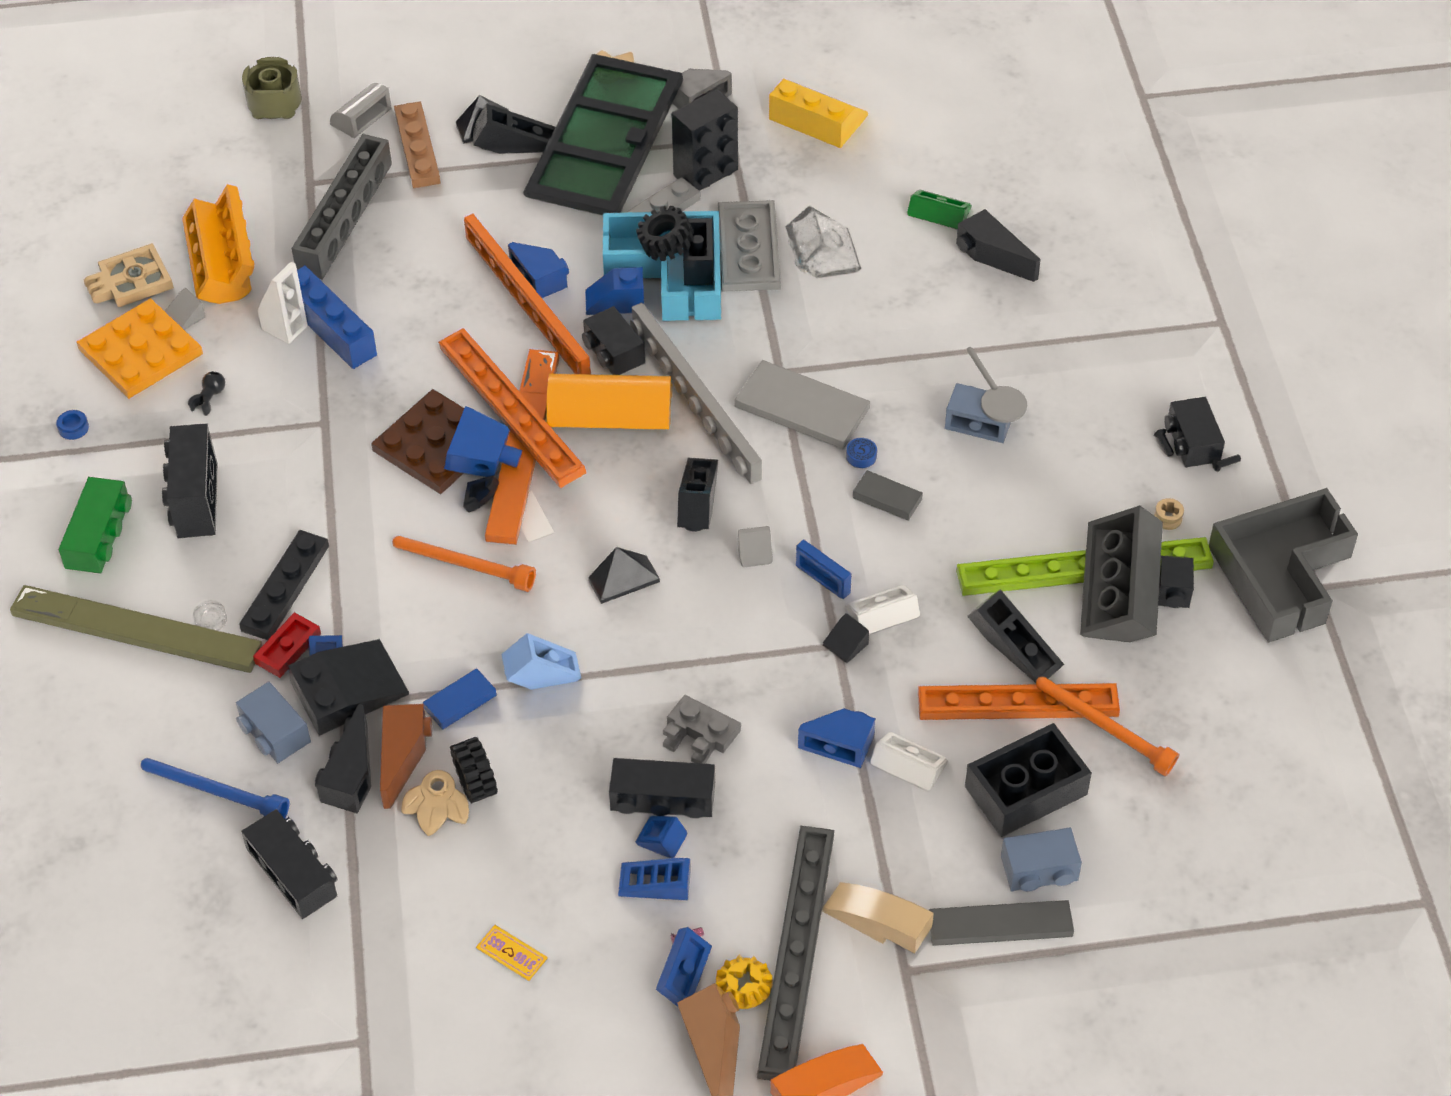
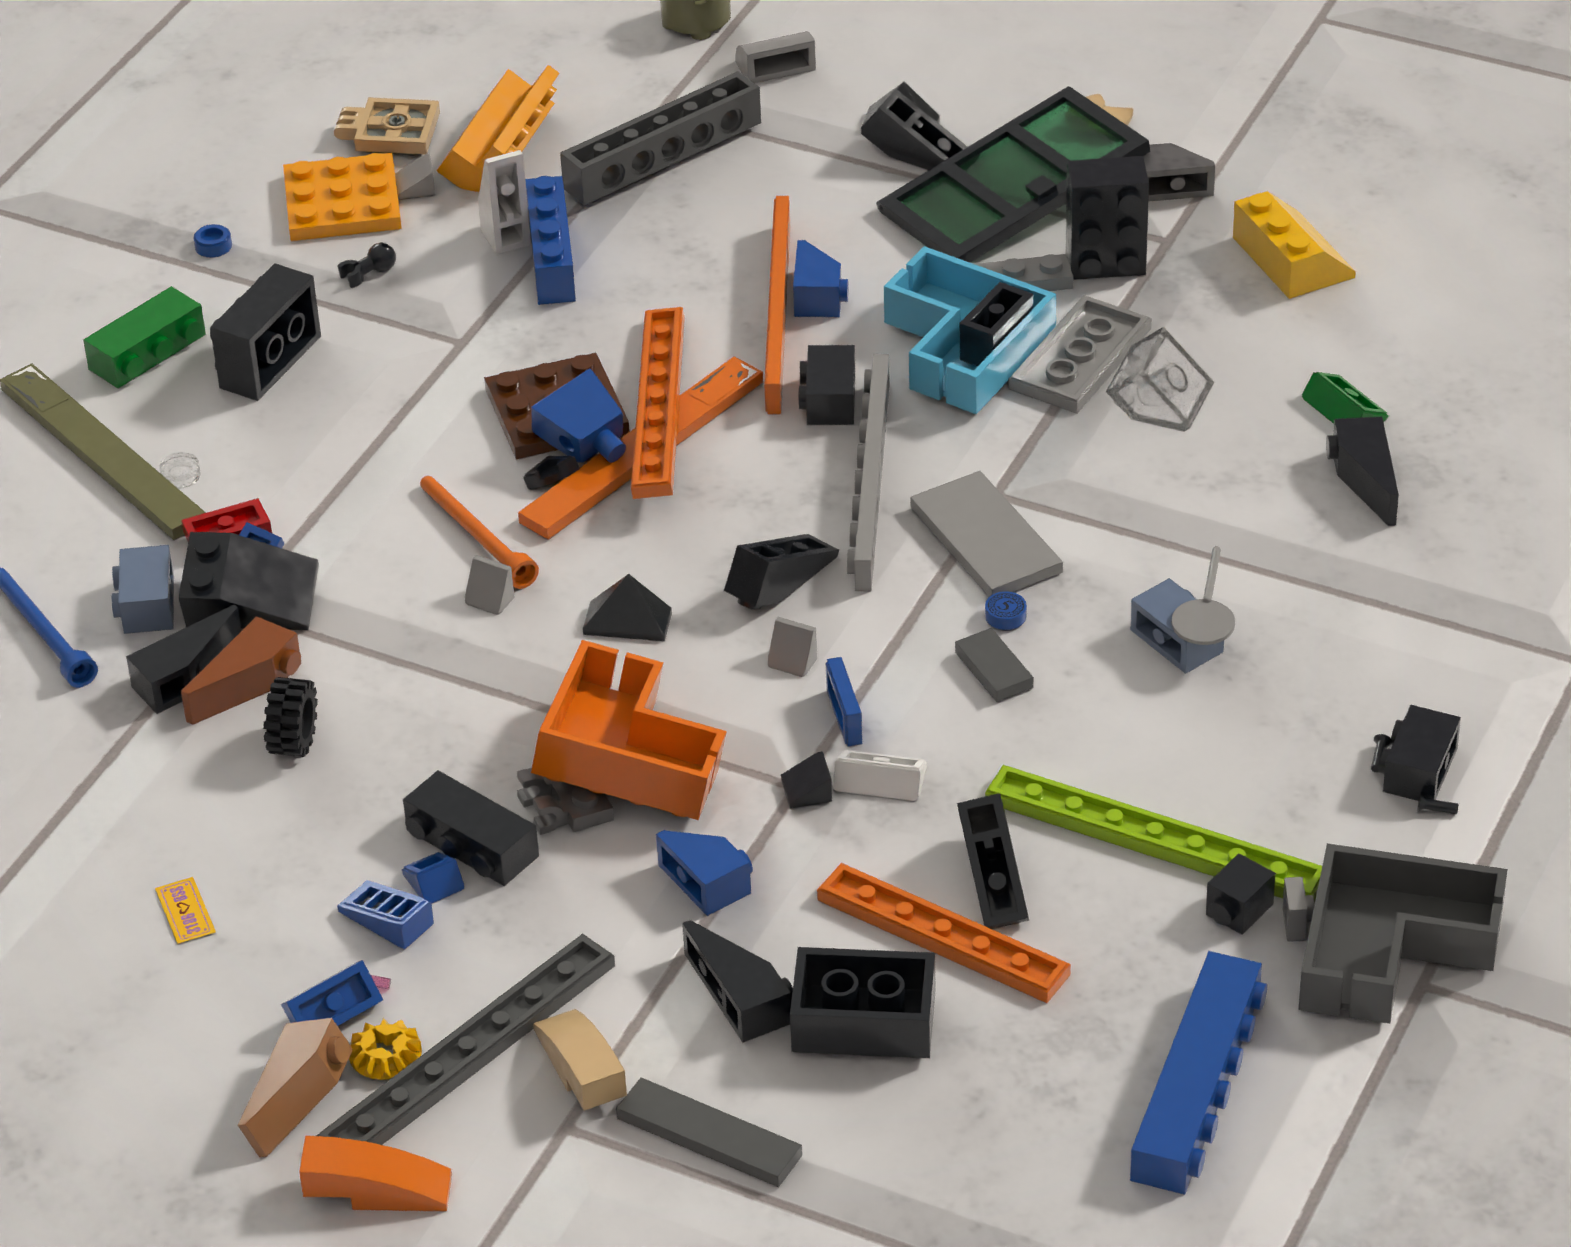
camera: 35 degrees right, 10 degrees down
(284, 585) = (281, 471): black plate -> none
(290, 863) = (45, 721): black brick -> none
(417, 144) = (806, 113): medium nougat plate -> none
(436, 806) = (231, 736): tan plate -> none
(459, 698) = (350, 654): blue tile -> none
(514, 600) = (489, 585): none -> light grey slope
(534, 520) = (589, 526): white sticker -> none
(539, 663) = (457, 655): light blue slope -> none
(609, 401) = (764, 437): light orange brick -> none
(616, 288) = (884, 333): blue slope -> none
(670, 243) = (960, 286): black tyre -> none
(713, 678) = (618, 742): none -> orange piece
(908, 760) = (762, 927): white slope -> none
(932, 806) = (739, 981): none -> black slope
(1041, 859) = (807, 1089): sand blue brick -> none
(1122, 576) = (1177, 857): dark grey slope -> none
(1160, 757) = (1047, 1062): orange piece -> none
(1173, 506) = (1309, 816): tan bush -> none
(1214, 575) = (1296, 908): none -> light grey plate
(1255, 718) = (1197, 1073): none -> blue brick

